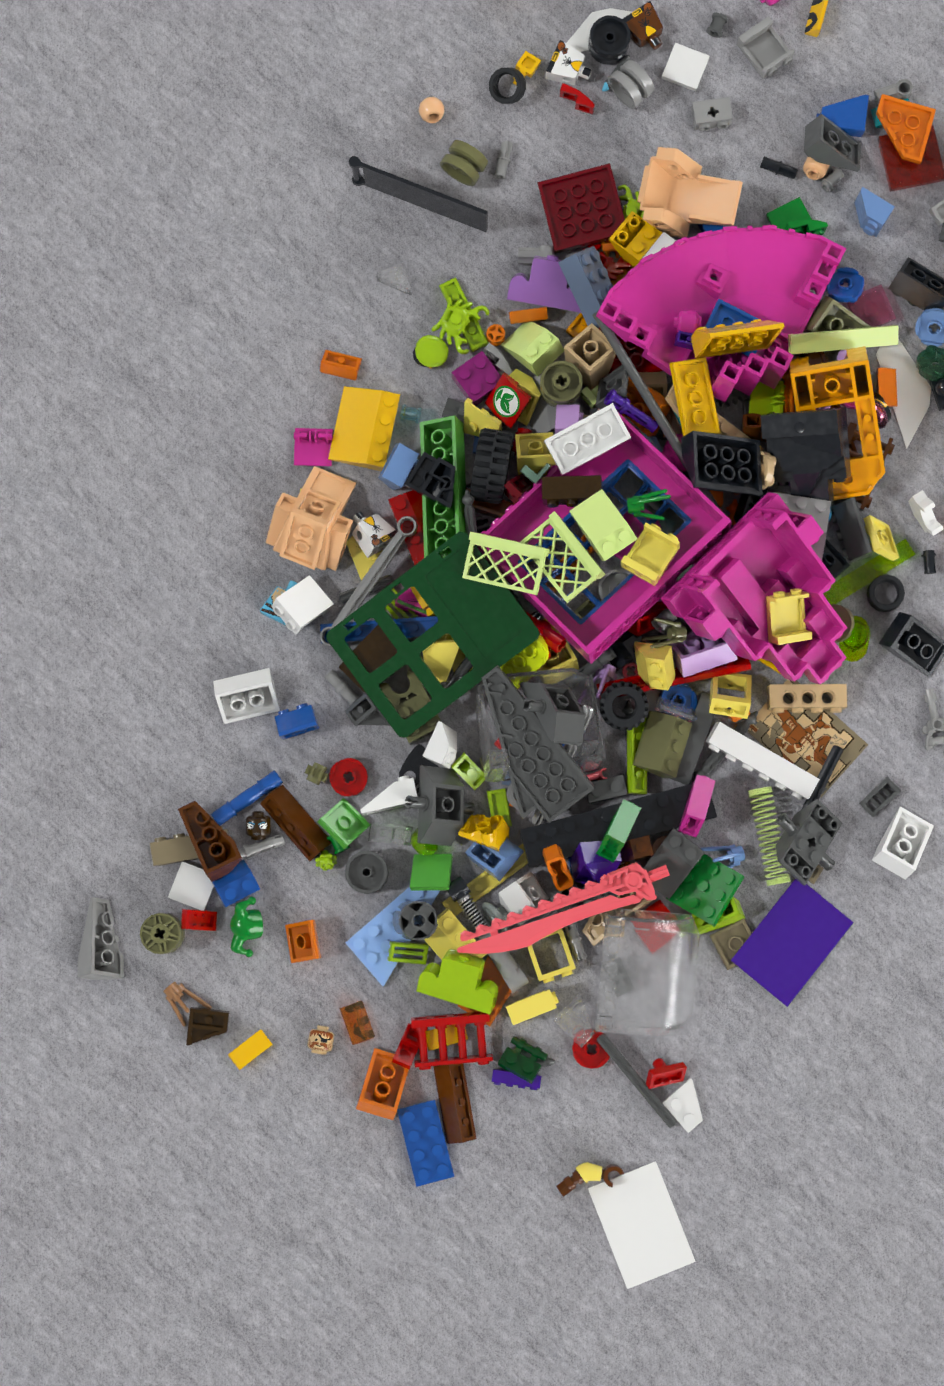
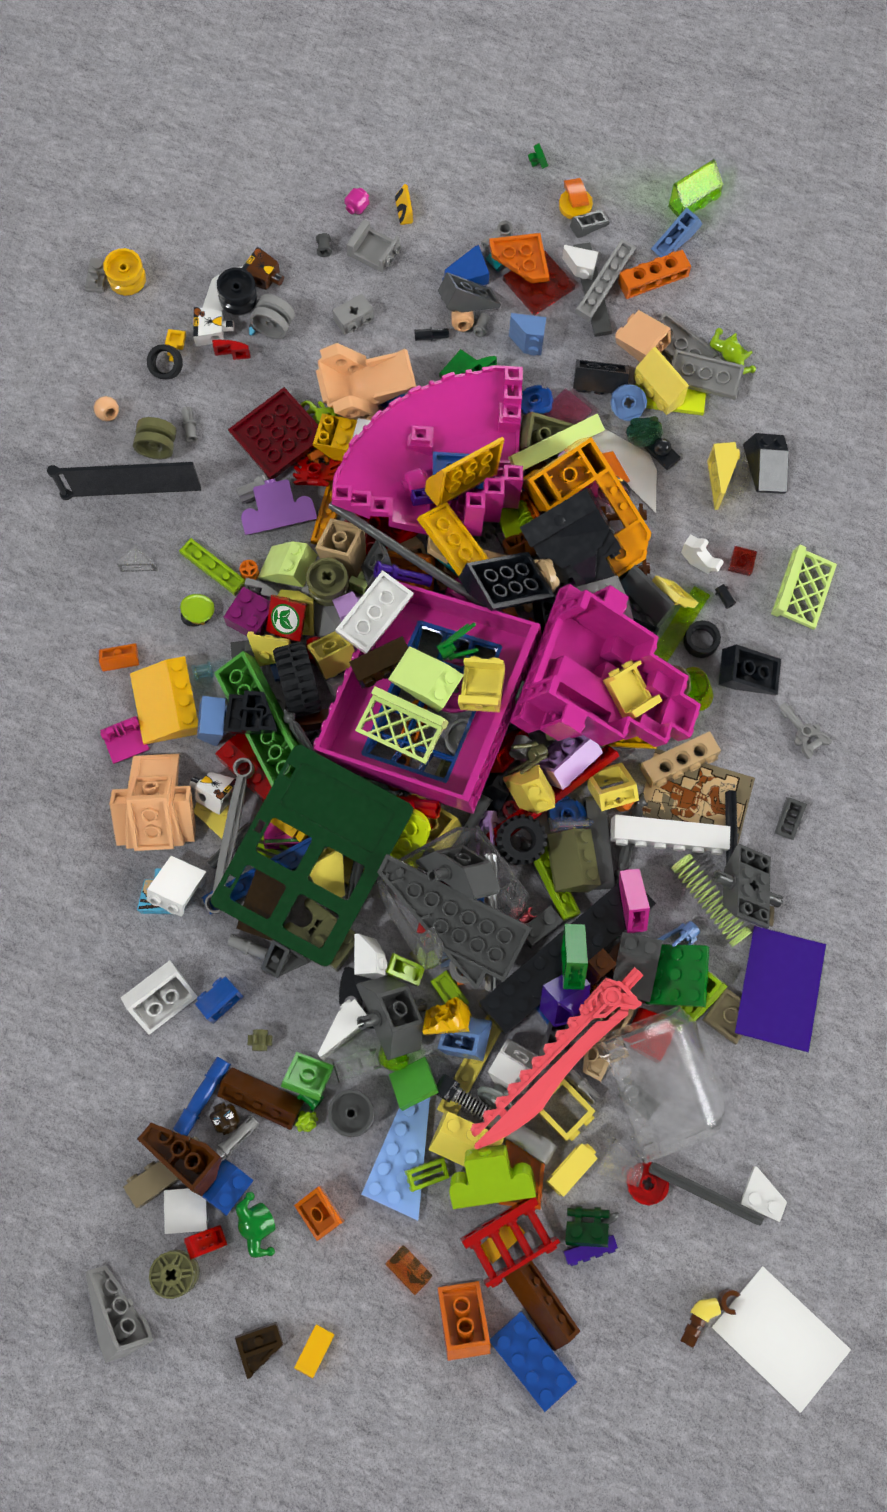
camera: 30 degrees left, 10 degrees down
(174, 994) = (212, 1331): medium nougat plant -> none
(320, 1040) = (381, 1306): head -> none
(343, 767) = (300, 1021): red plate -> none
(407, 1048) = (470, 1271): red slope -> none
(423, 914) = (419, 1128): dark grey cylinder -> none
(455, 320) = (207, 573): lime animal -> none
(506, 545) = (345, 737): yellowish green fence -> none
(516, 487) = (329, 687): dark red slope -> none
(528, 315) = (270, 540): orange slope -> none
(531, 475) = (336, 668): sand green panel -> none
(557, 867) = (533, 1020): orange brick -> none
(587, 281) = (310, 486): sand blue brick -> none
(665, 1074) = (729, 1174): red tile -> none
(685, 67) = (312, 288): white tile -> none
(903, 843) = (833, 851): white slope -> none

